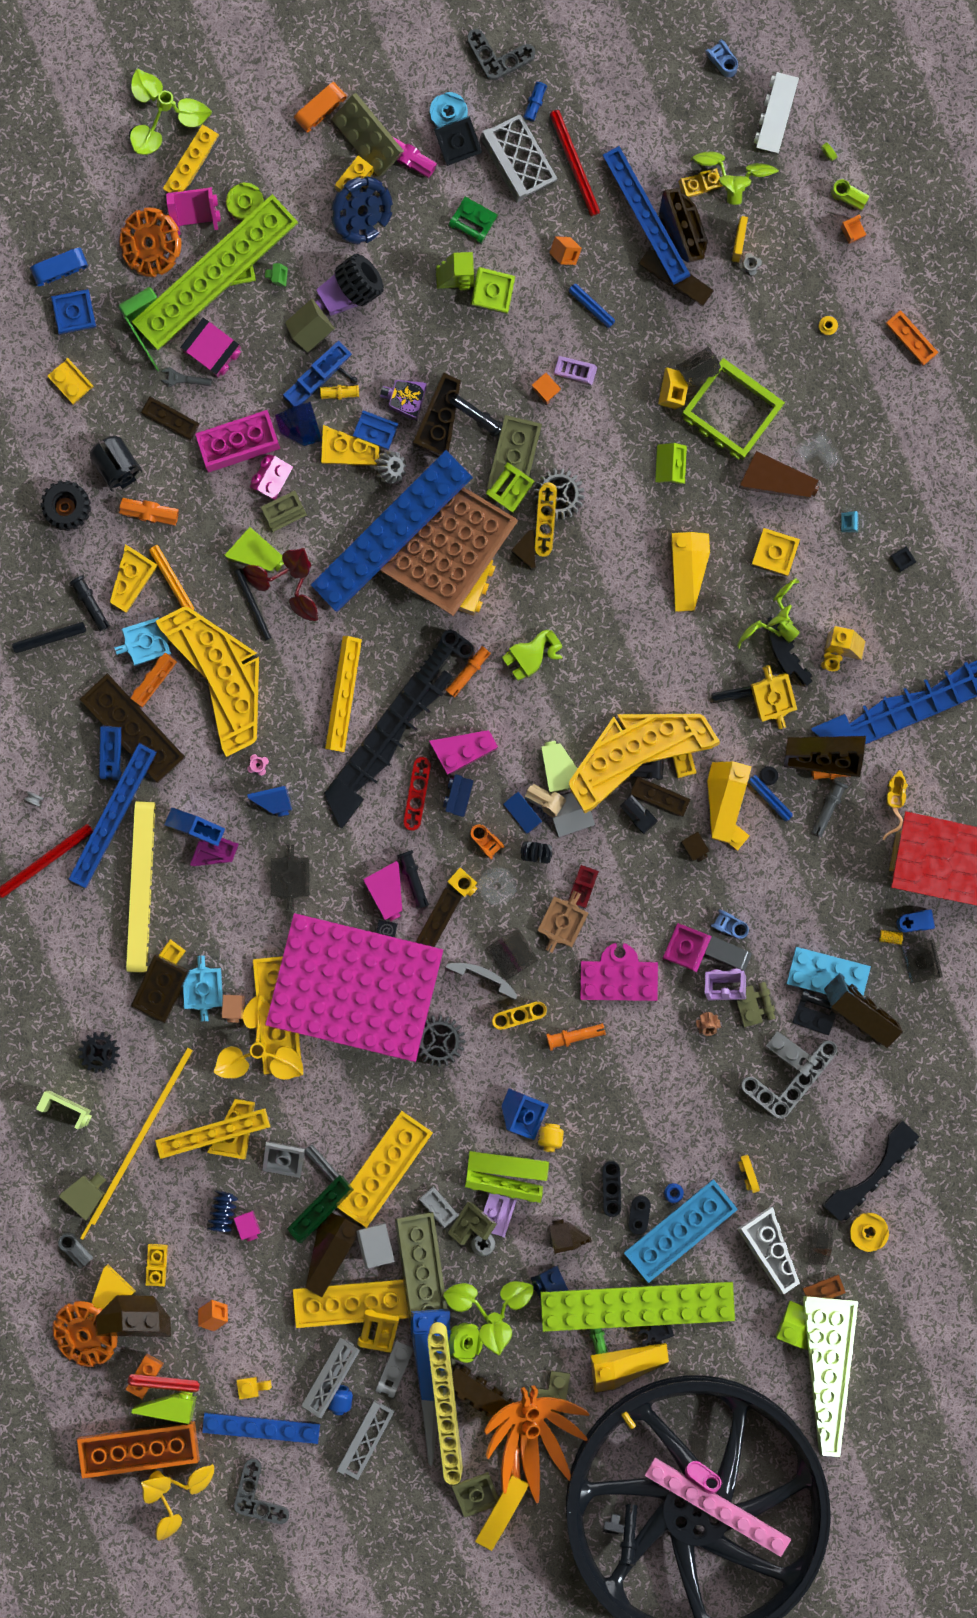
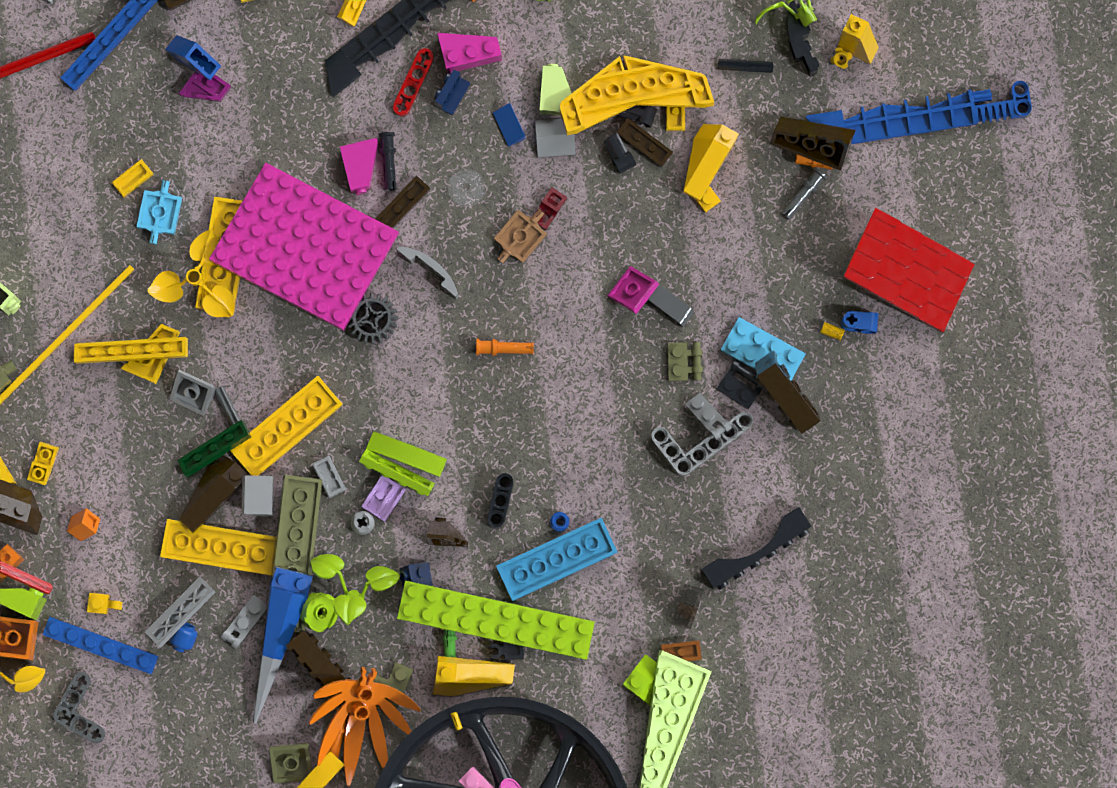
camera: 10 degrees right, 5 degrees down
(106, 1047) = (37, 248): black gear -> none
(140, 886) = (126, 101): light yellow beam -> none
(160, 988) = (118, 201): dark brown tile -> none
(222, 1212) = (120, 427): dark blue piece -> none
(233, 1007) = (182, 235): nougat brick -> none
(247, 1226) = (140, 447): dark pink brick -> none
(254, 760) = (263, 19): bright pink plate -> none
(273, 800) = (274, 51): blue slope -> none
(290, 877) = (271, 129): clear smoke plate -> none
(362, 1431) = (189, 681): light grey fence -> none
(384, 1333) = (244, 582): yellow plate -> none
(387, 928) = (351, 200): black tile -> none
(445, 1395) = (286, 653): light yellow beam -> none
(460, 874) = (428, 170): yellow brick -> none
(471, 1220) = (355, 496): olive plate -> none
(487, 841) = (469, 144): orange piece -> none
(512, 954) = (463, 254): clear smoke slope -> none
(523, 1113) = (434, 408): blue slope -> none
(529, 1016) = (446, 309): yellow beam -> none
(536, 852) = (512, 164): black gear -> none
(549, 802) = (536, 120): tan piece -> none
(550, 1137) = (454, 437): yellow head -> none
(619, 977) = (560, 303): dark pink plate -> none
(639, 1214) = (520, 533): black plate -> none
(695, 847) = (666, 198): dark brown brick -> none
(708, 1024) = (634, 368): nougat gear -> none
(719, 976) = (661, 327): lavender window -> none
(729, 924) = (678, 278): medium blue piece -> none
(751, 1181) = (637, 529): yellow plate -> none
(768, 775) = (753, 149): black plate -> none
(770, 798) = (749, 171): blue axle -> none
(770, 1249) = (638, 598): white wedge -> none
(774, 697) = (777, 76): yellow plate -> none
(873, 1242) = (750, 607): yellow plate -> none
(896, 797) = (871, 197): yellow animal -> none
(922, 961) = (857, 361): clear smoke slope -> none

